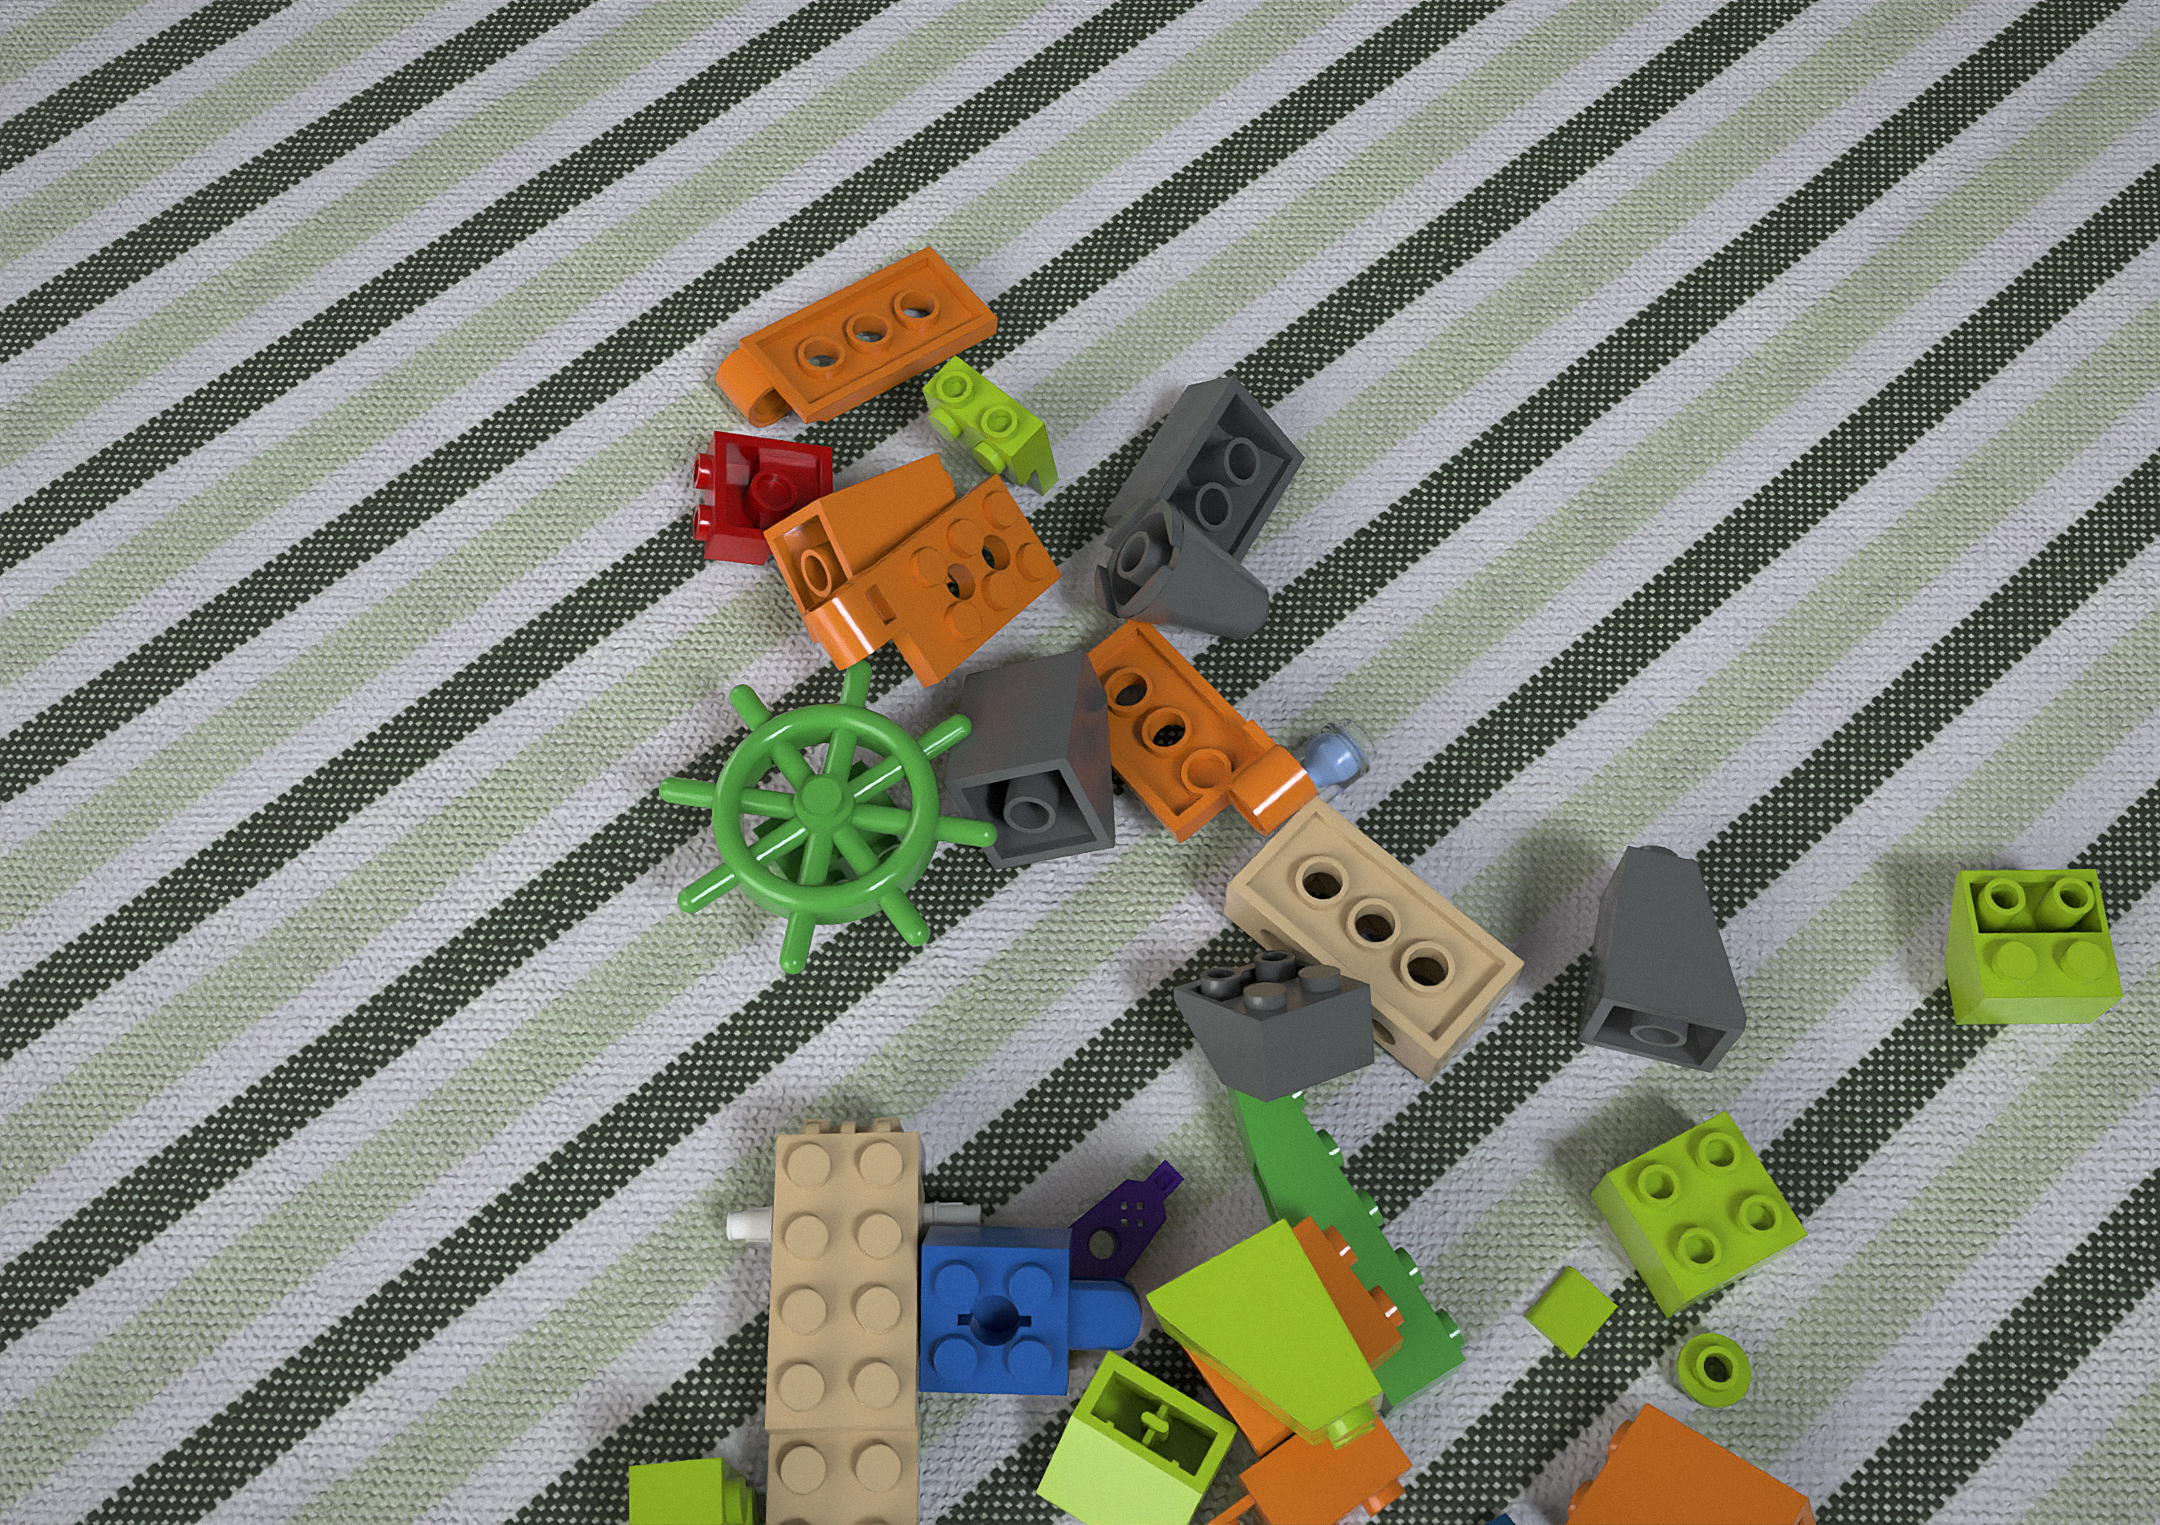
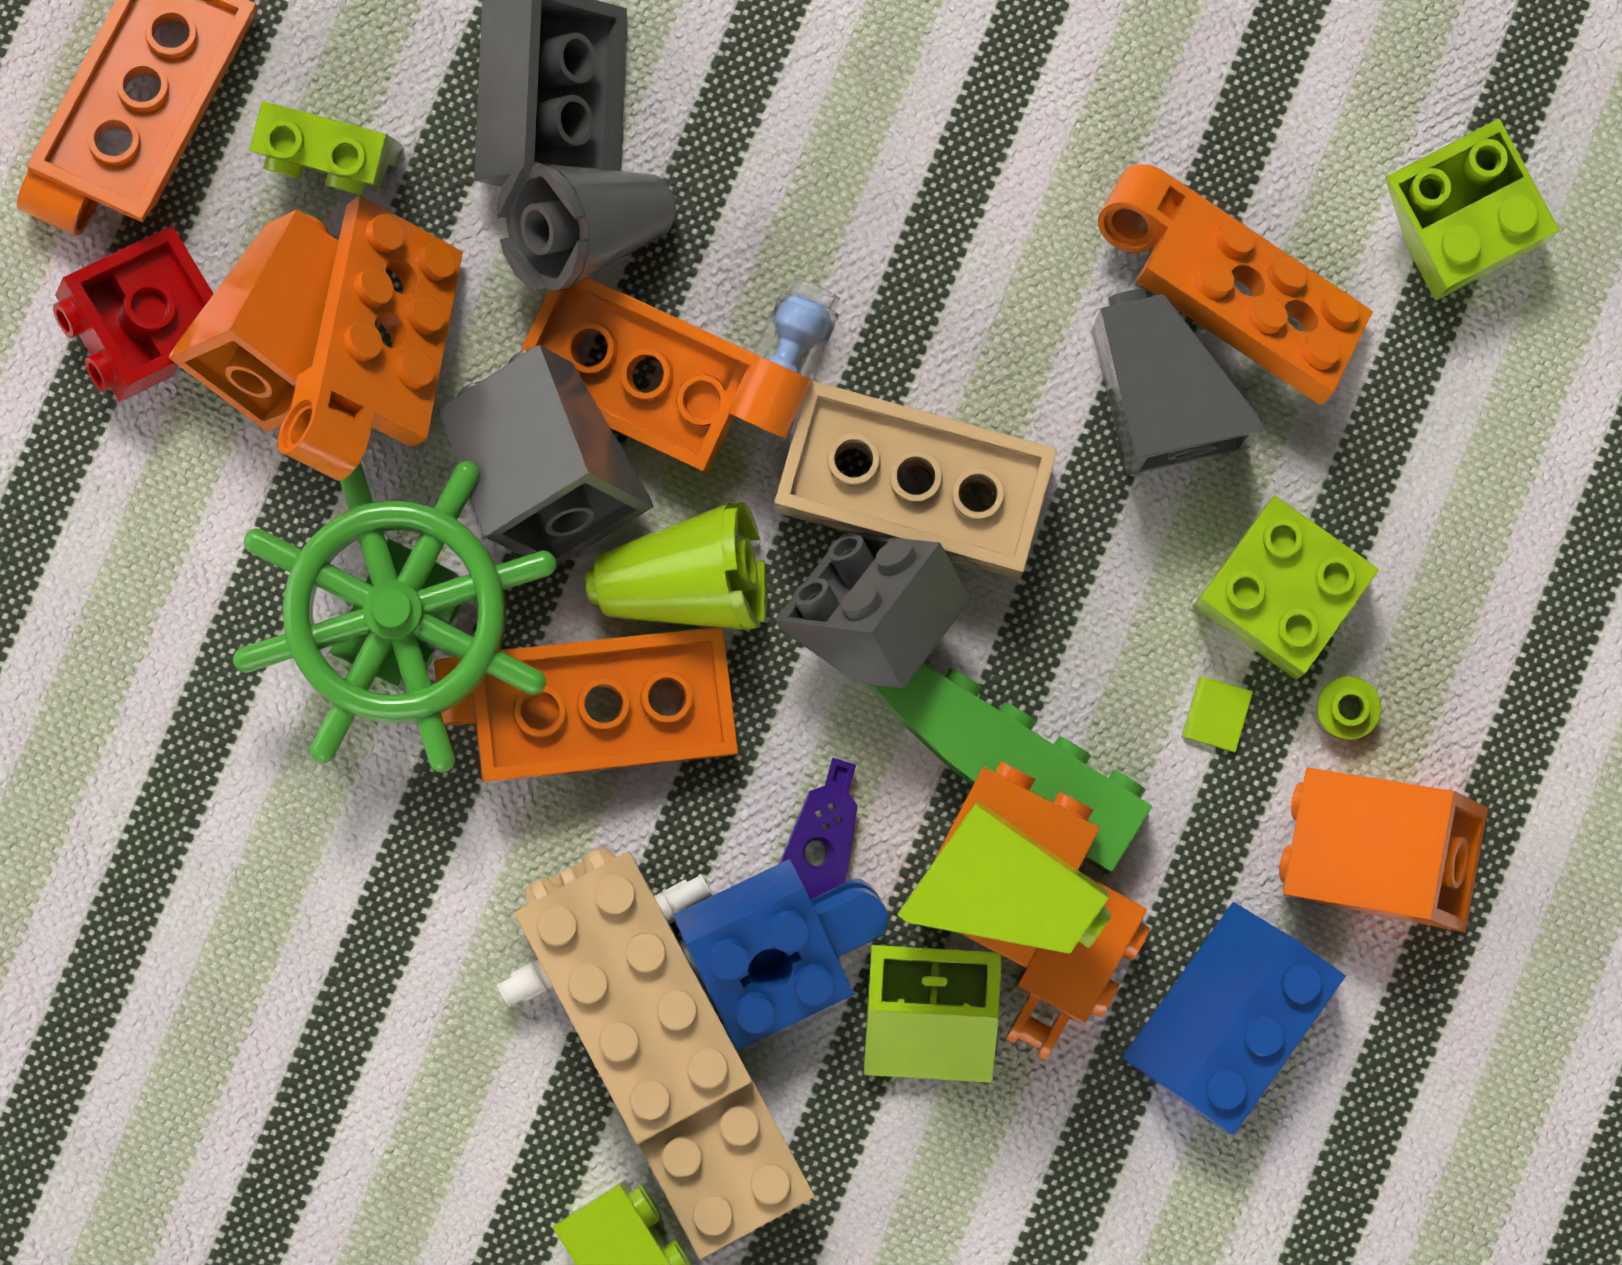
camera: 30 degrees left, 20 degrees up
(909, 1000) = (556, 736): none -> orange hinge
(1115, 919) = (686, 573): none -> lime cone
(1767, 903) = (1196, 265): none -> orange hinge

